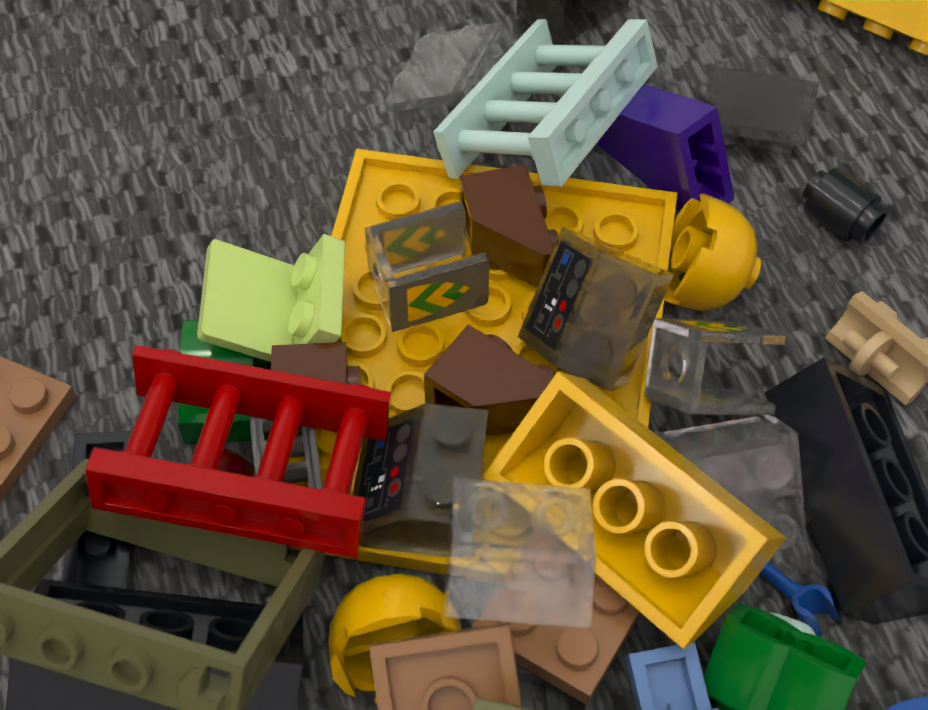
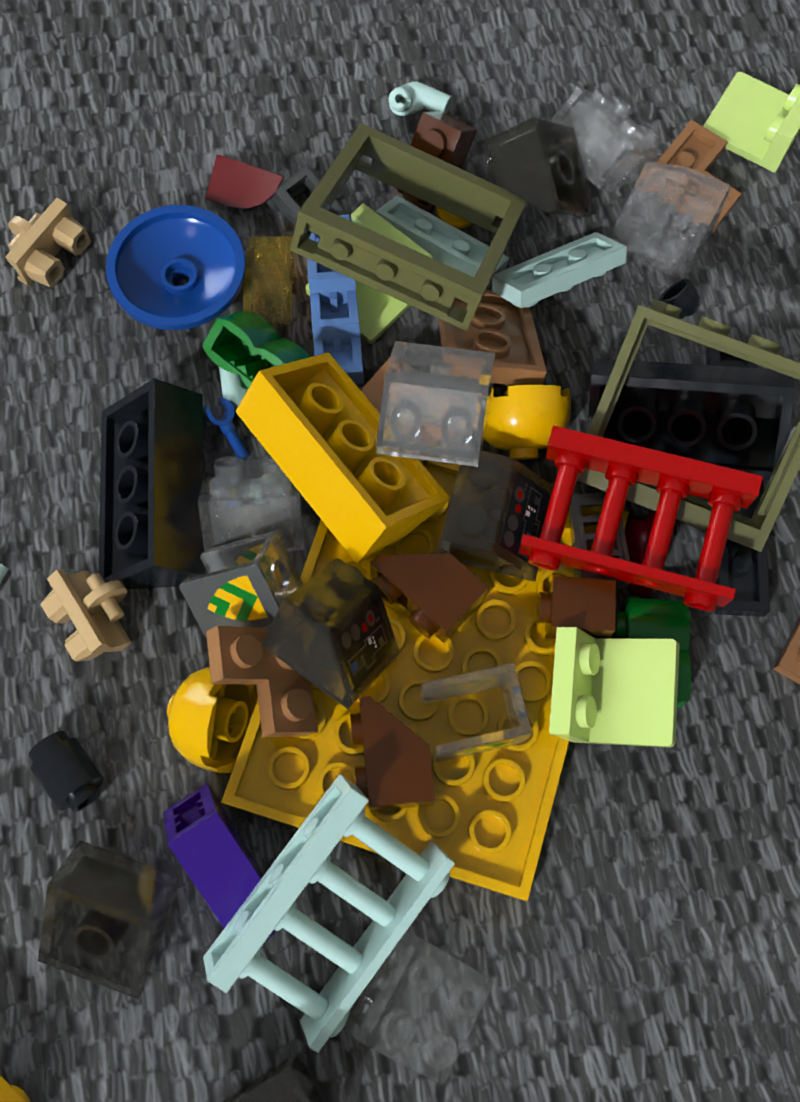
camera: 175 degrees left, 15 degrees up
(697, 264) = (283, 693): none -> medium nougat plate

